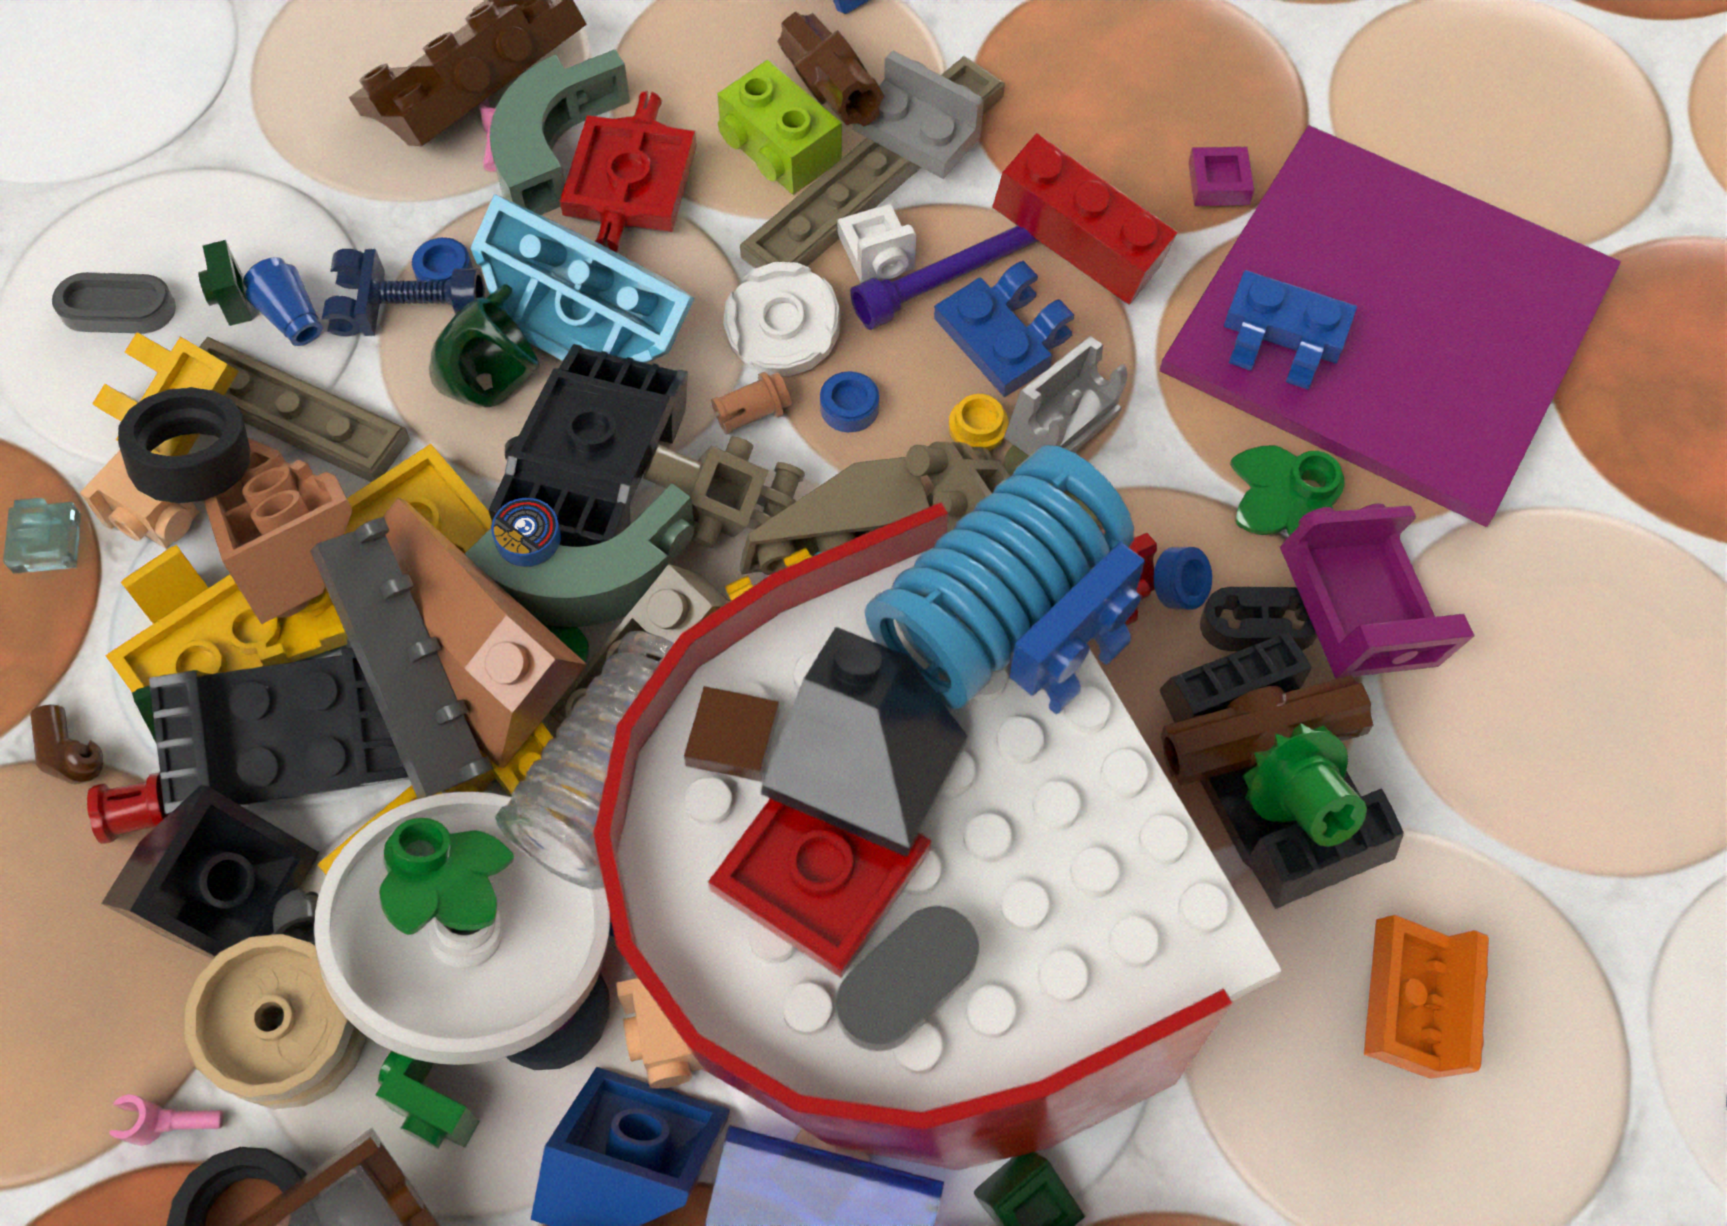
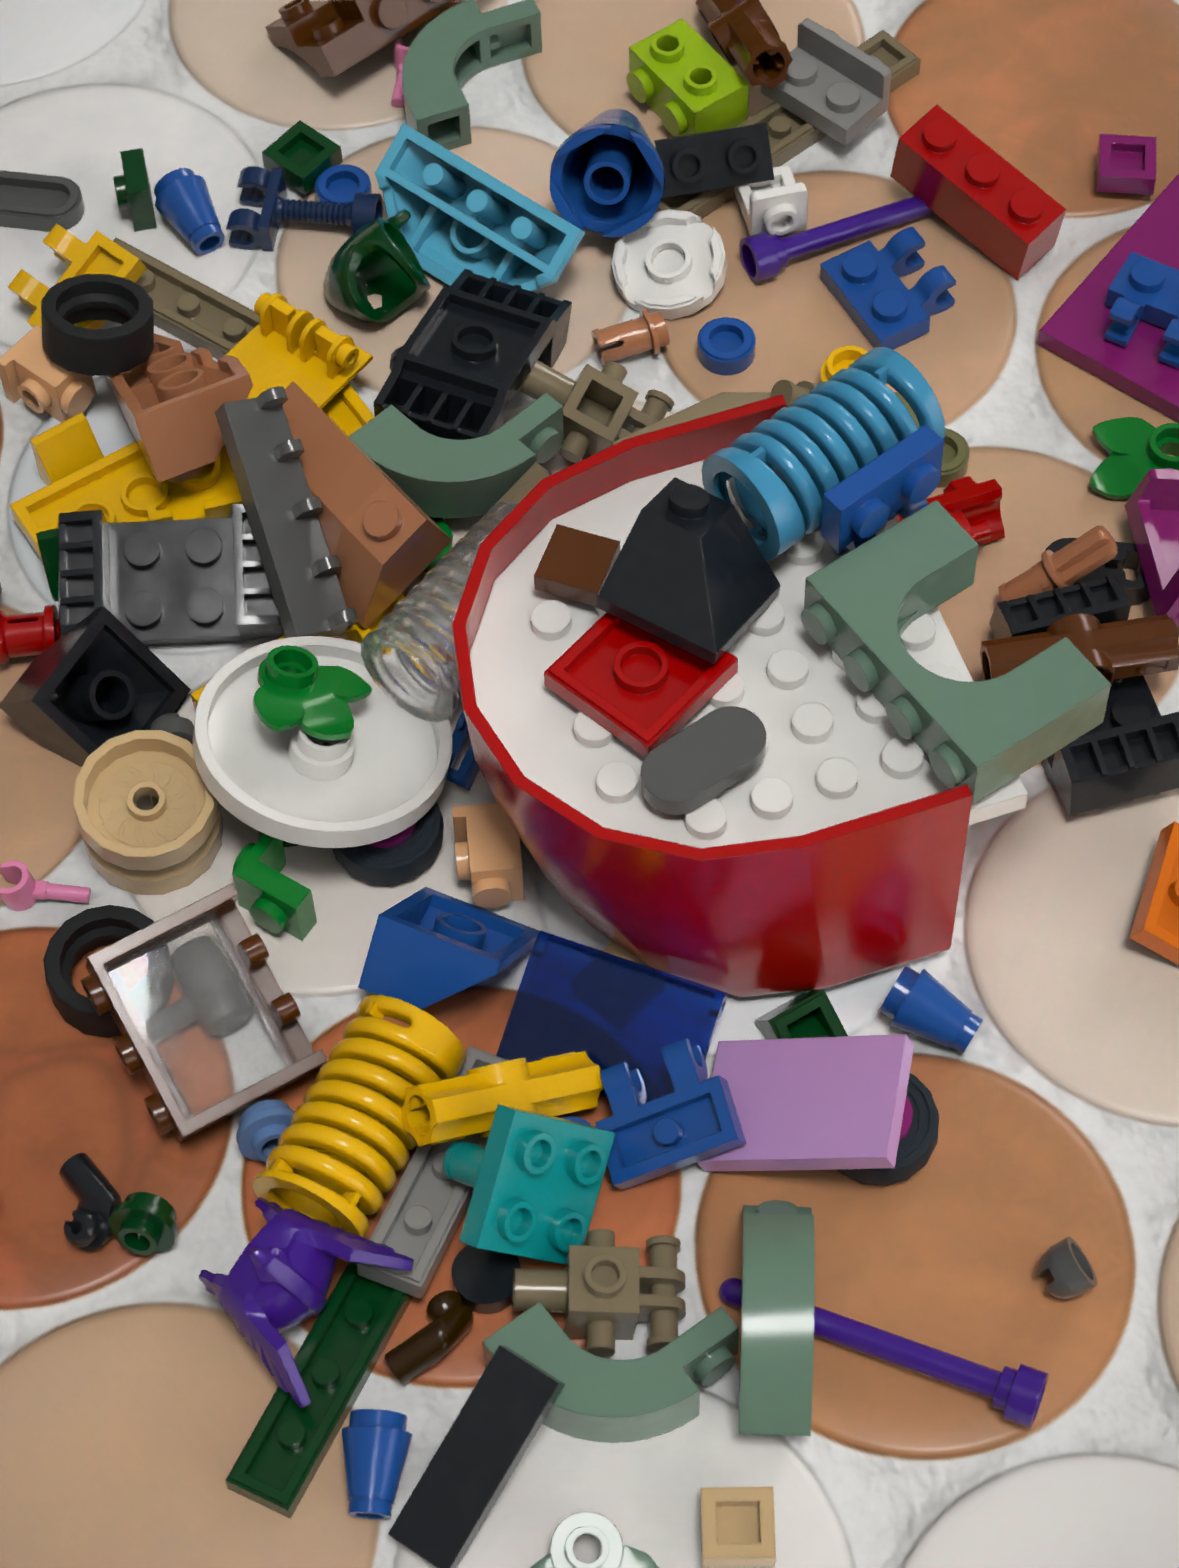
camera: 10 degrees right, 5 degrees down
(395, 232) = (302, 156): none -> dark green plate
(400, 457) = (299, 349): none -> yellow hinge
(526, 532) = (407, 420): tile -> none
(629, 172) = (531, 113): red plate -> none
(711, 232) = (608, 175): none -> blue cone
(815, 206) = (716, 159): none -> black hinge
(1067, 402) = (947, 352): light grey hinge -> none
(1163, 1167) = (929, 1010): none -> blue cone
(1182, 578) = (1026, 526): blue tile -> none
(1213, 912) = (968, 729): none -> sand green arch
(1228, 628) = (1063, 566): none -> nougat axle
(1306, 783) = (1126, 713): green gear -> none

